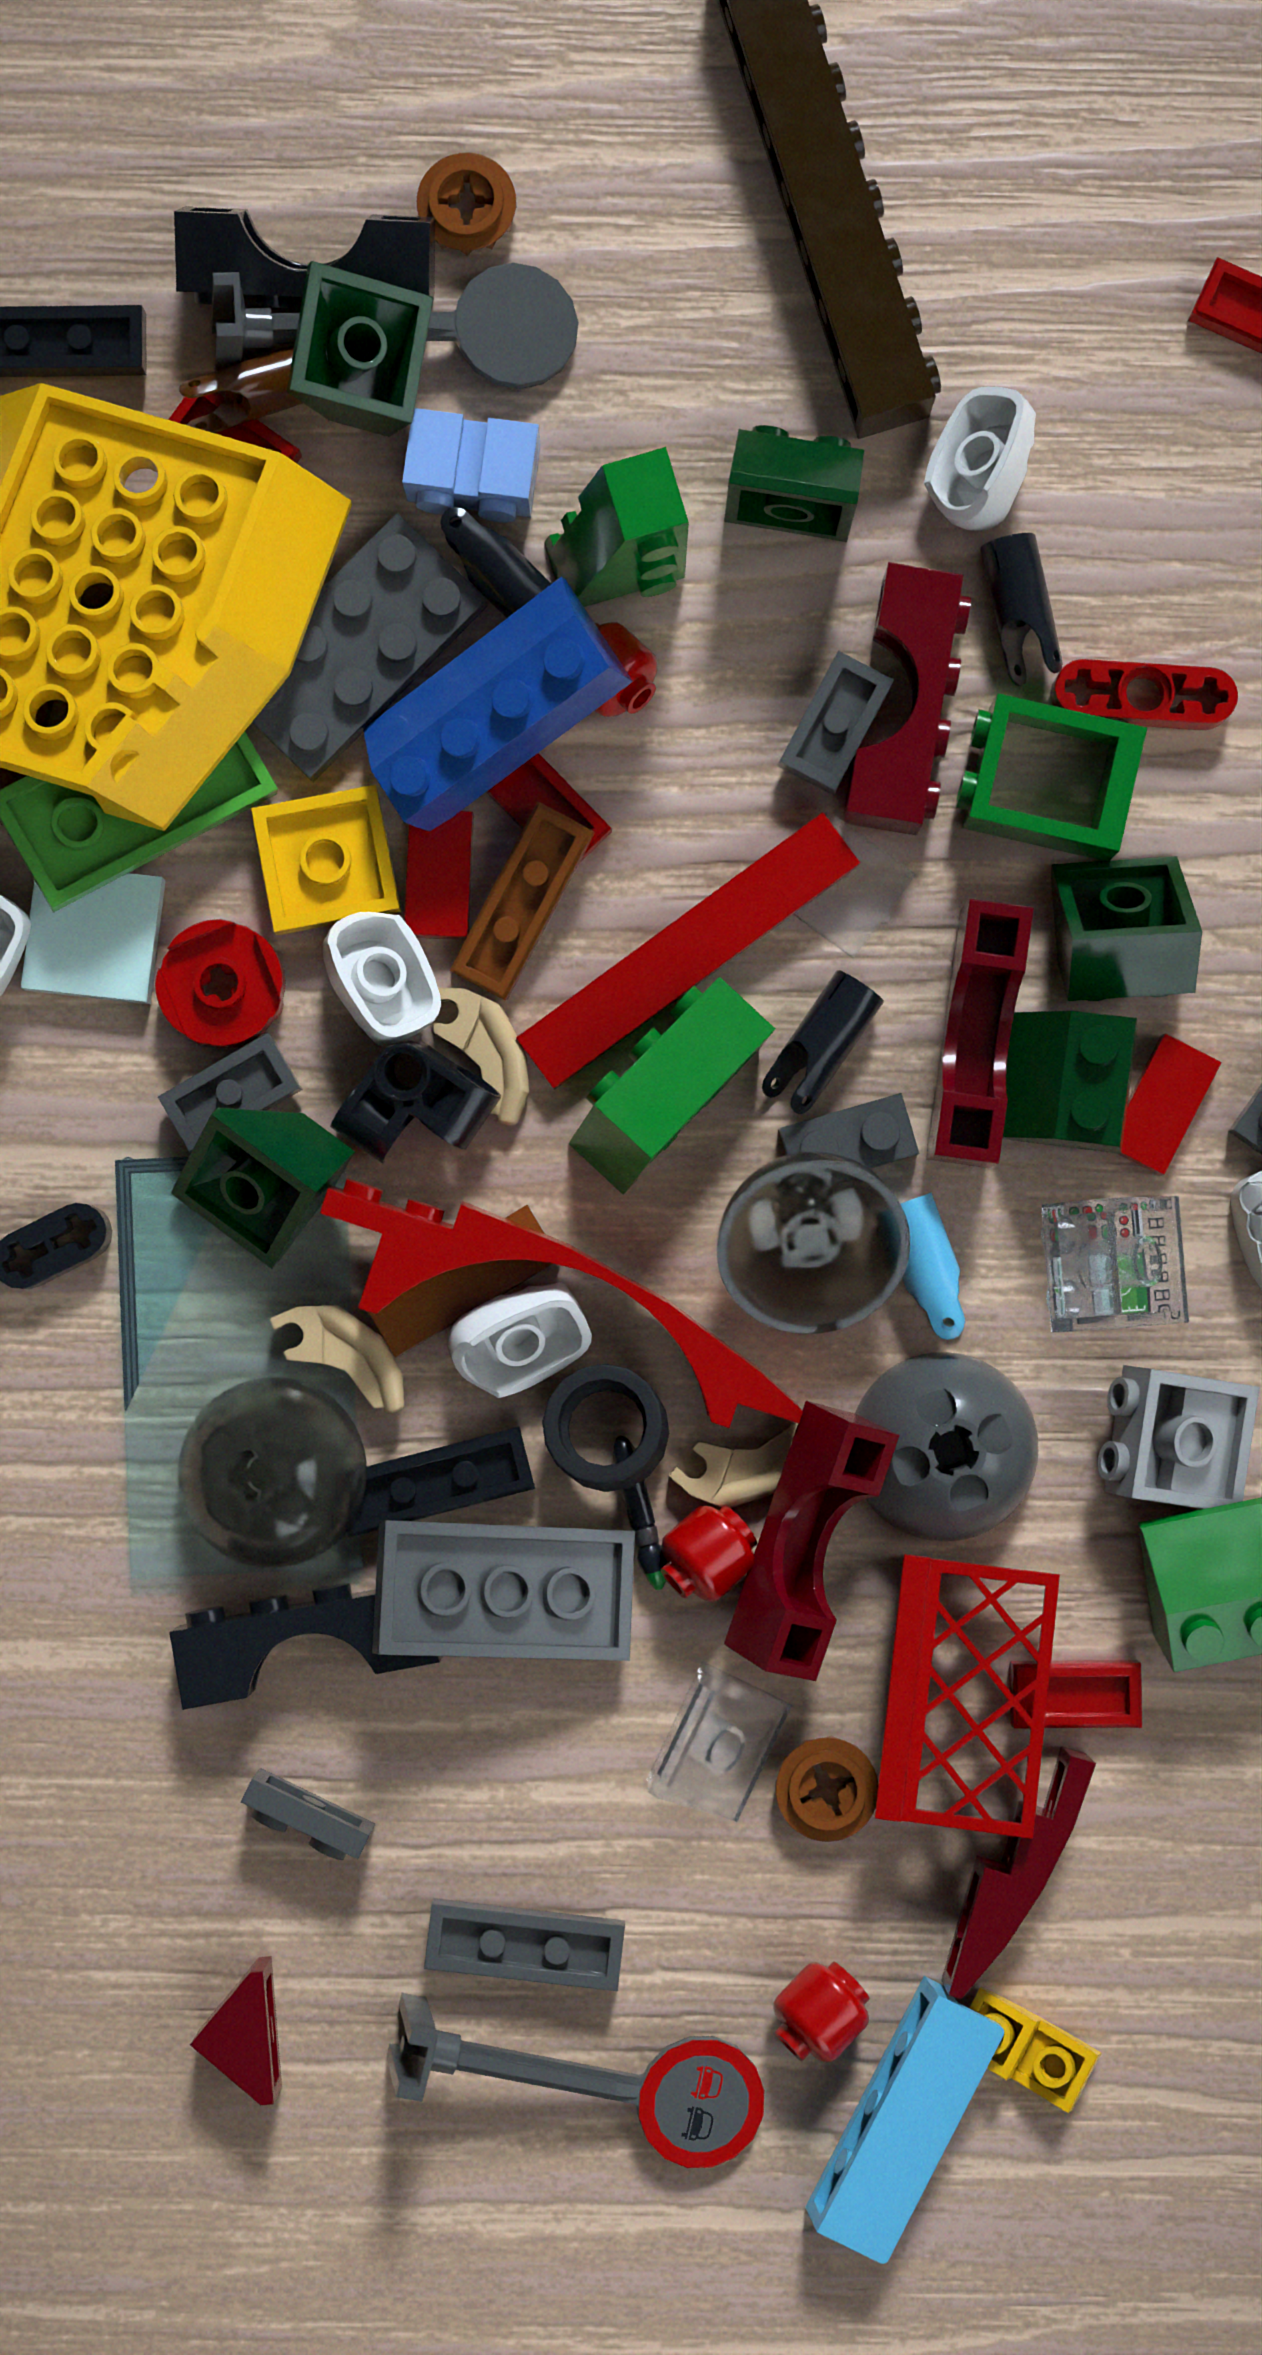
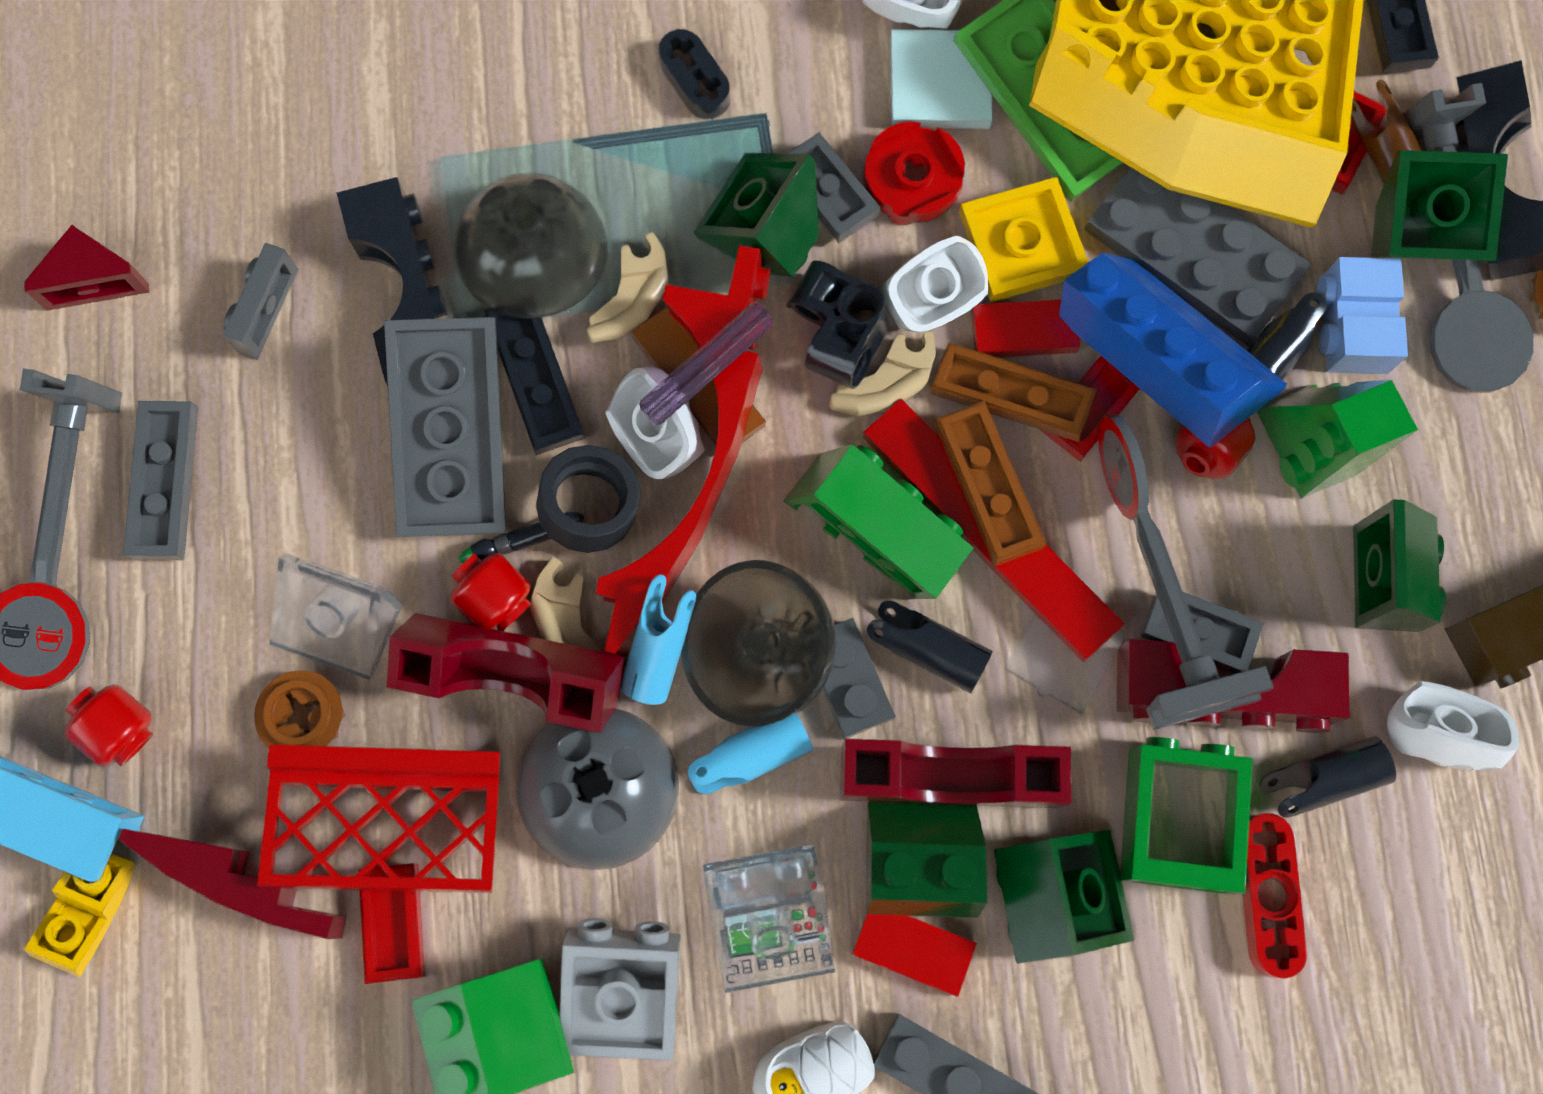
camera: 80 degrees right, 10 degrees down
(471, 1268) = (706, 363): none -> clear purple axle
(637, 946) = (989, 483): none -> dark orange tile
(801, 1363) = (656, 646): none -> medium azure piece
(918, 737) = (1204, 689): none -> dark grey piece

